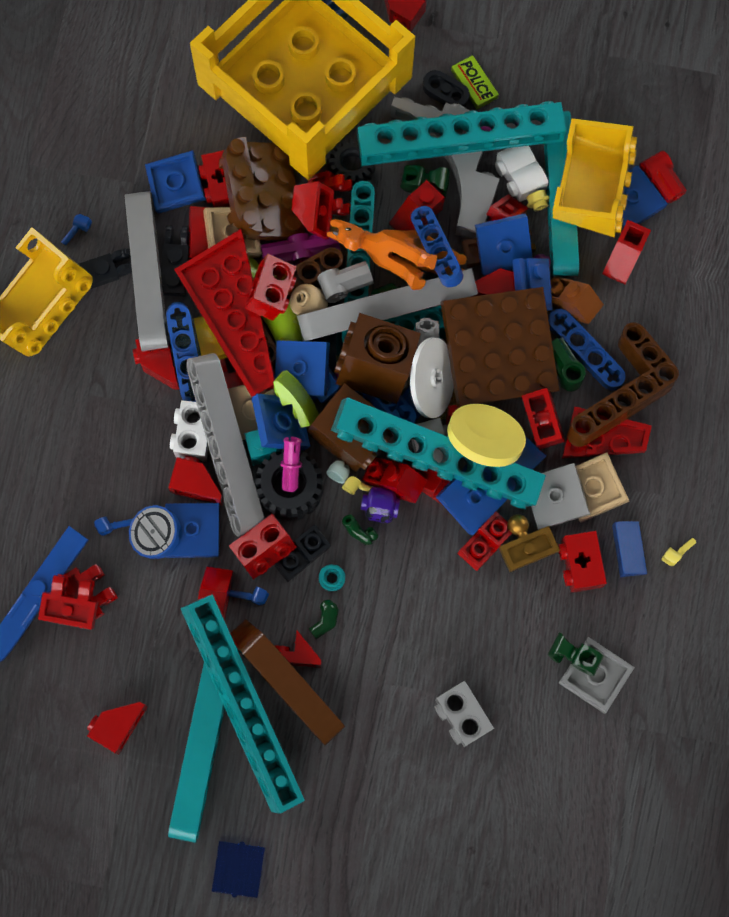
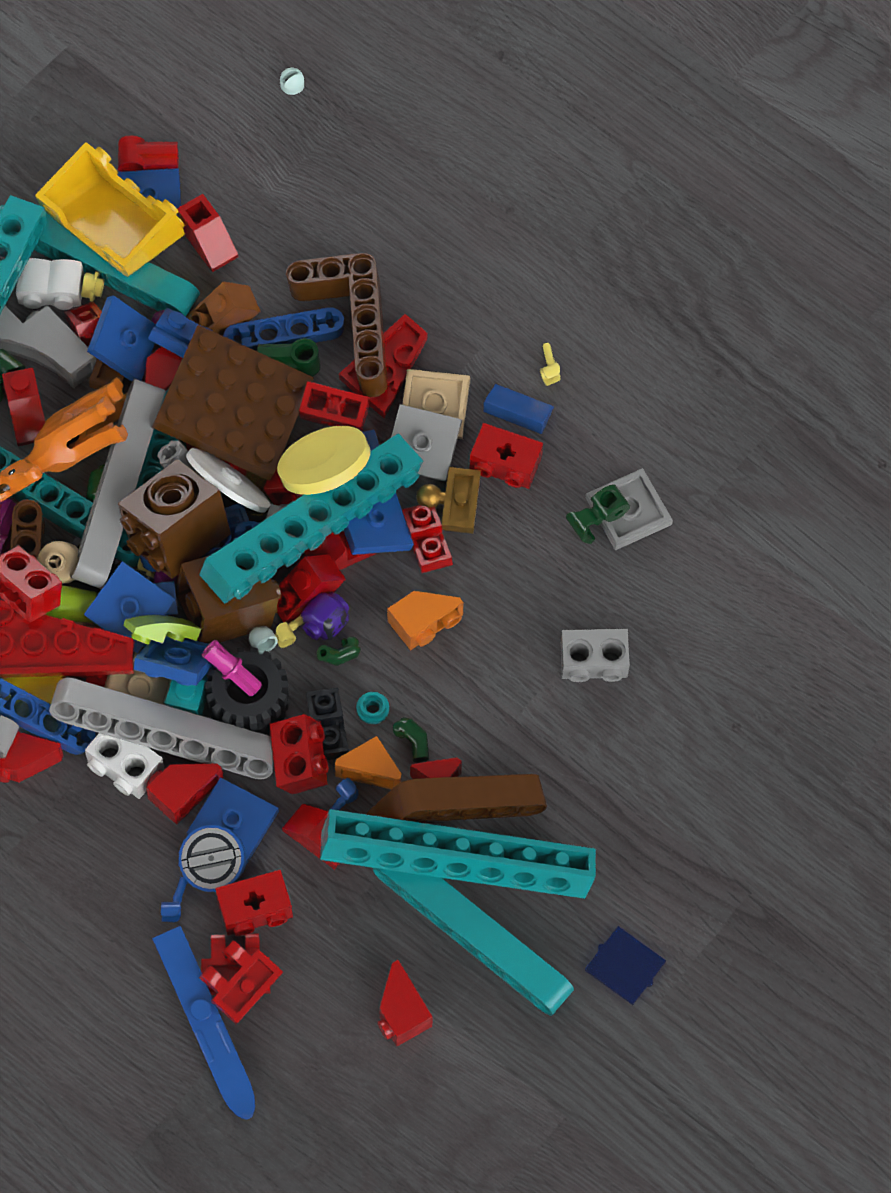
camera: 60 degrees left, 10 degrees down
(131, 565) = (267, 891): none -> red brick
(286, 601) = (369, 765): none -> orange slope
(338, 283) = (61, 518): light grey piece -> none
(420, 572) = (422, 615): none -> orange slope
(438, 245) = (88, 396): blue beam -> none

